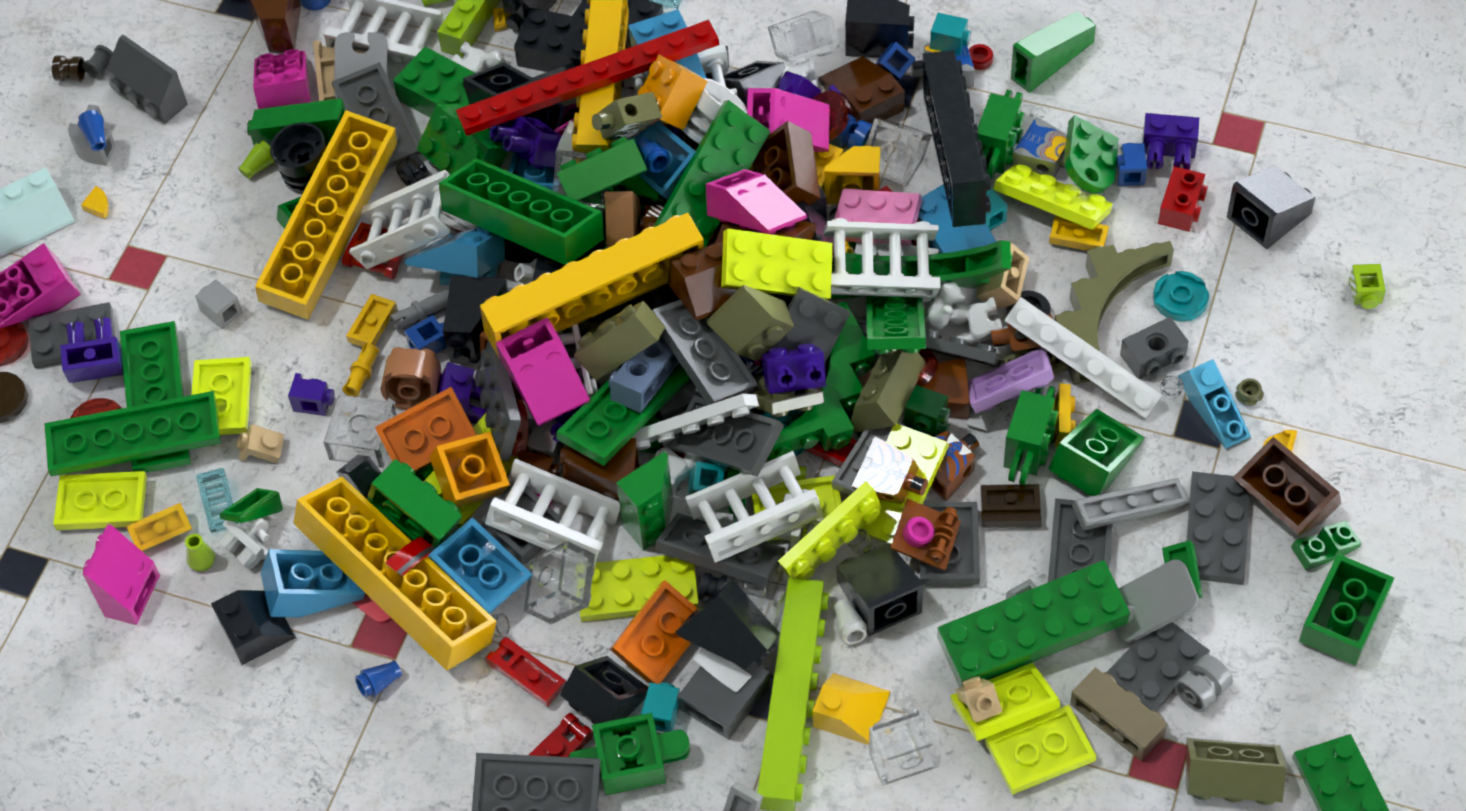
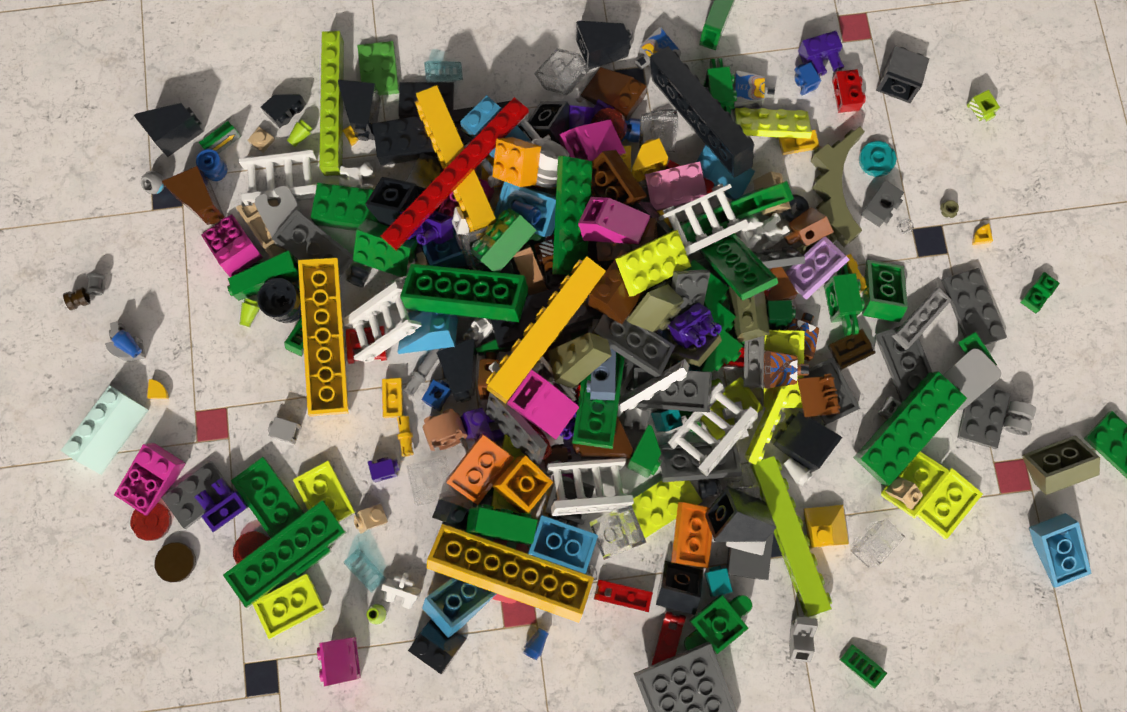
camera: 30 degrees left, 20 degrees up
(145, 80) = (138, 287): dark grey slope -> none
(159, 527) = (338, 607): yellow plate -> none
(253, 506) = (392, 557): green slope -> none
(410, 555) = (518, 560): red sticker -> none
(615, 120) = (494, 201): olive torso -> none
(895, 60) = (628, 65): blue brick -> none
(918, 532) = (816, 398): dark pink tile -> none
(949, 33) = (656, 33): teal brick -> none
(981, 56) = (675, 35): red tile -> none
(1083, 357) = (851, 233): white plate -> none
(1090, 153) = (781, 84): green plate -> none
(1118, 713) = (981, 459): dark tan brick -> none
(1214, 403) = (933, 225): medium azure slope -> none
(1288, 487) = (1007, 267): reddish brown slope -> none
(1346, 609) = (1076, 333): green brick -> none

